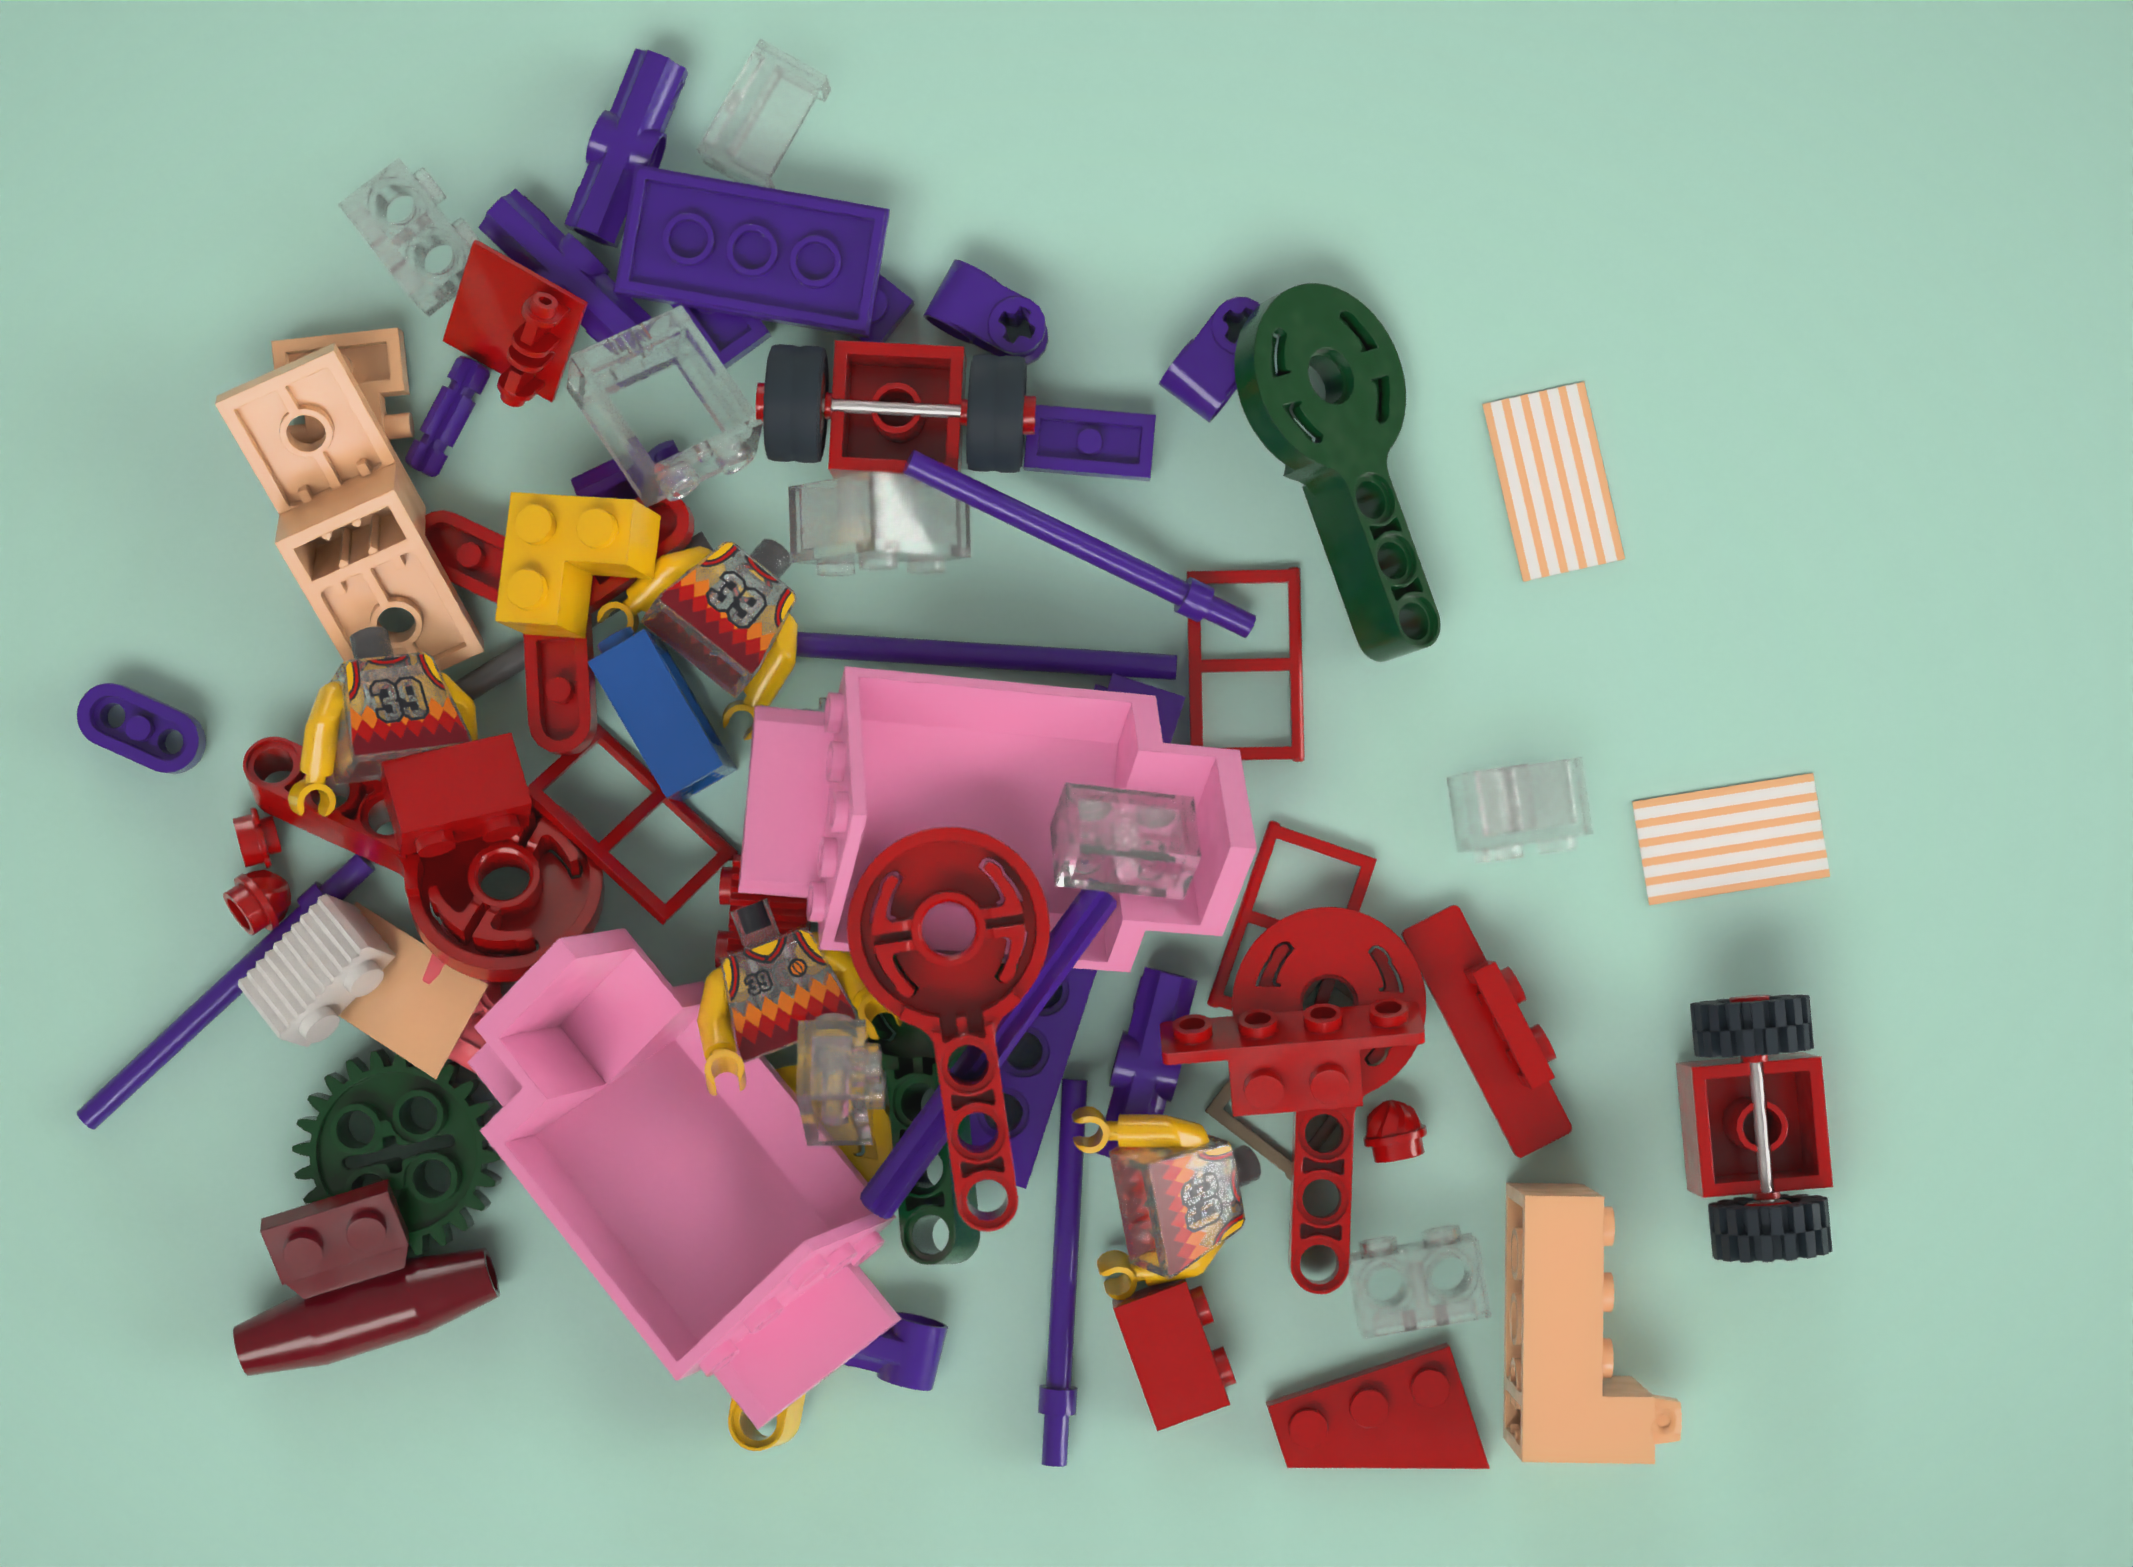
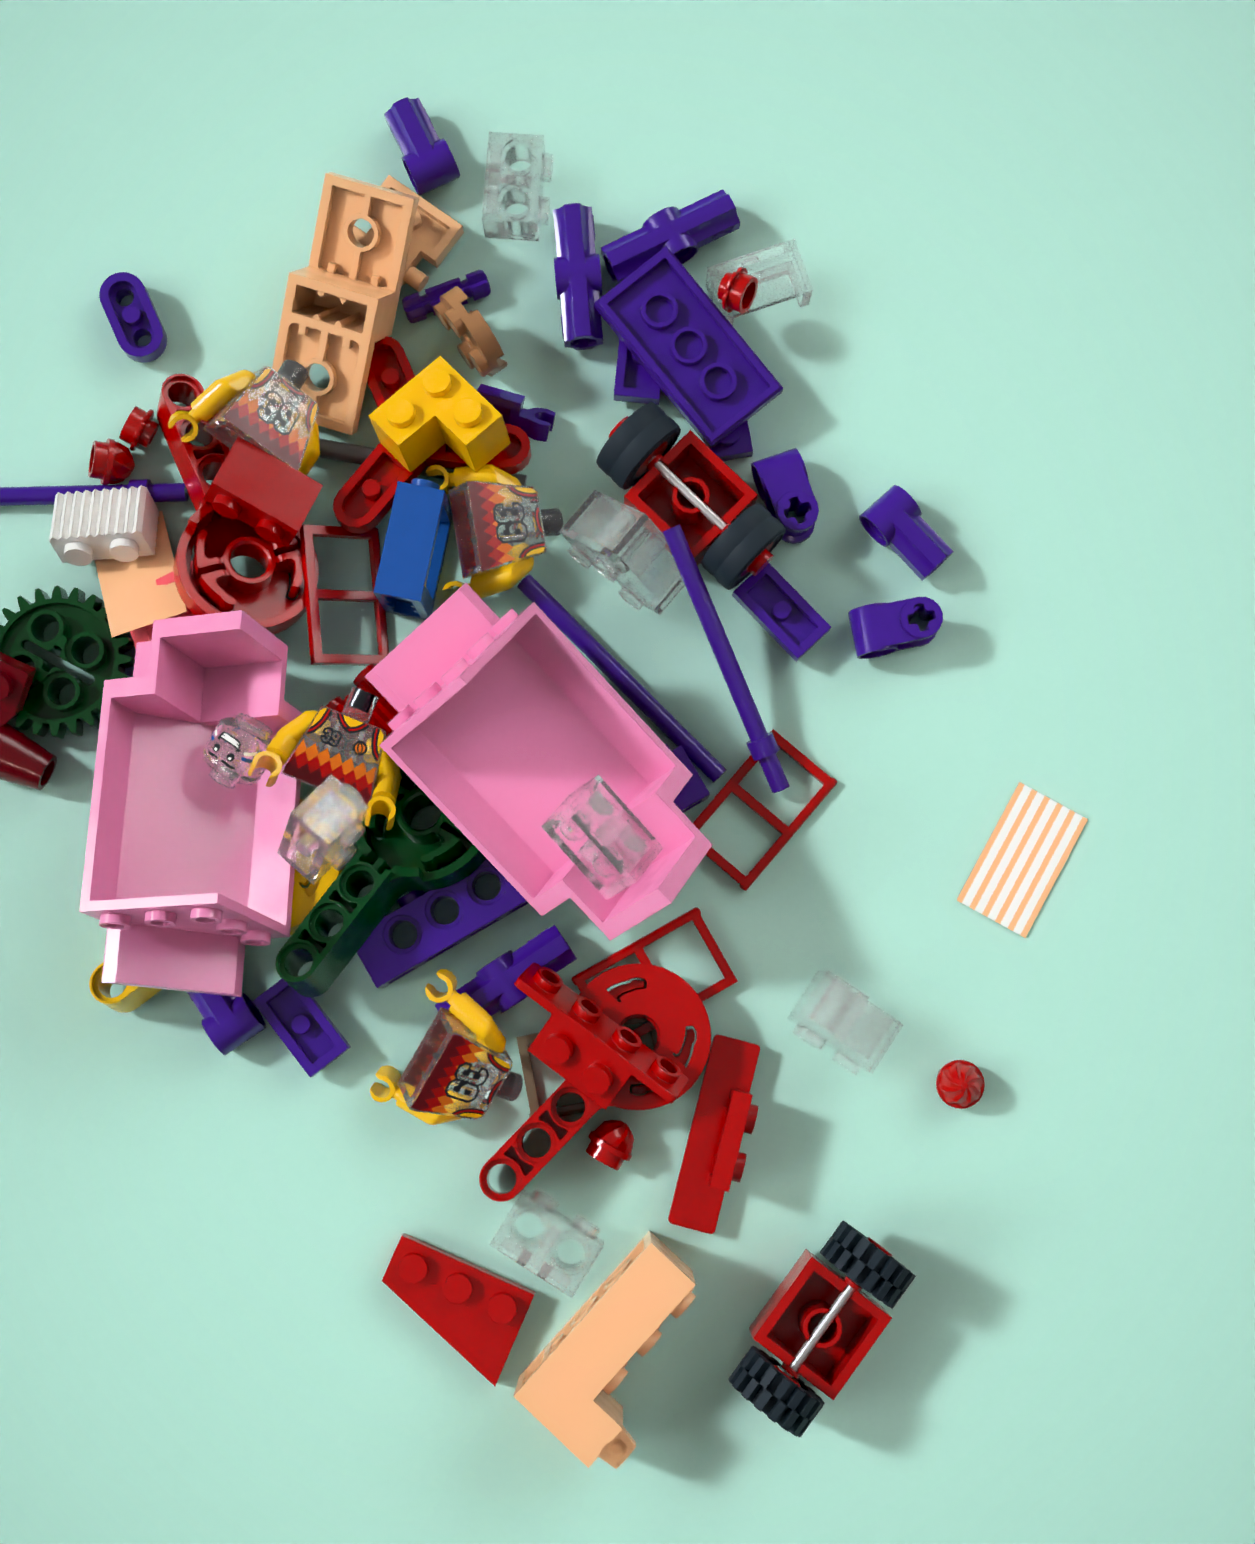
camera: 40 degrees right, 5 degrees down
(291, 286) = (424, 154): none -> dark purple piece
(514, 324) = (525, 276): red hinge -> none
(523, 437) = (478, 344): none -> medium nougat plate
(644, 352) = (579, 350): clear window -> none
(672, 1079) = (233, 749): none -> clear head
(753, 149) = (737, 291): none -> red plate
(928, 1130) = (421, 887): dark purple axle -> none
(957, 992) = (433, 837): red beam -> none
(983, 1293) = (302, 1027): none -> dark purple plate
(1057, 1396) = (291, 1122): dark purple bar -> none
(1126, 246) = (897, 523): none -> dark purple piece
(1172, 1352) = (376, 1156): red brick -> none
(1348, 462) = (919, 740): dark green beam -> none
(1687, 765) = (960, 1084): none -> red plate
(1731, 839) = (948, 1149): sticker -> none

